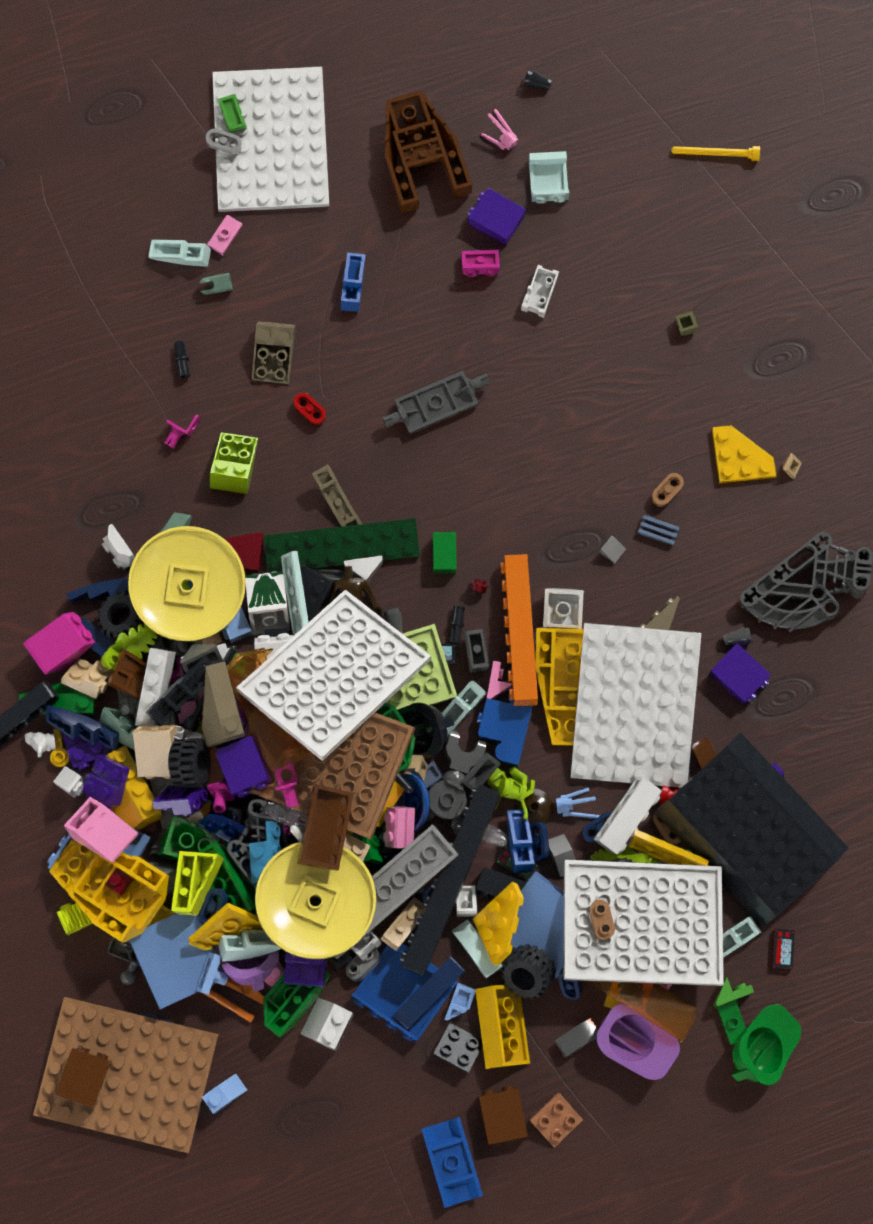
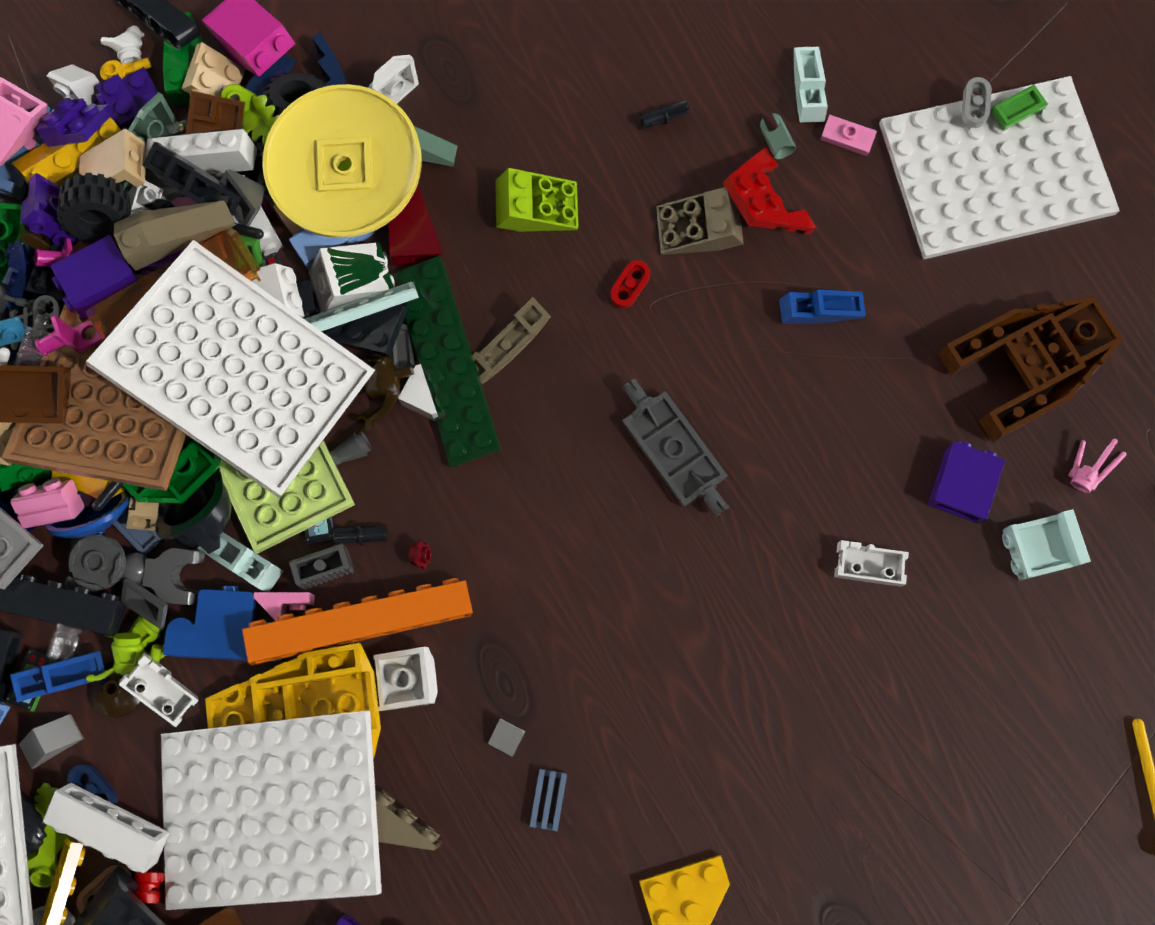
camera: 80 degrees right, 0 degrees up
(78, 725) = (145, 77): dark blue slope -> none
(177, 431) = (566, 128): dark pink bracket -> none
(264, 307) = (758, 200): none -> red wing
(444, 553) = (459, 498): green panel -> none
(480, 262) = (892, 472): dark pink bracket -> none
(540, 841) = (62, 703): dark blue plate -> none
(541, 772) = (158, 689): none -> white piece
(566, 803) = (118, 734): light blue plant -> none
(667, 490) = (612, 801): medium nougat plate -> none
(687, 323) = (872, 788): olive brick -> none

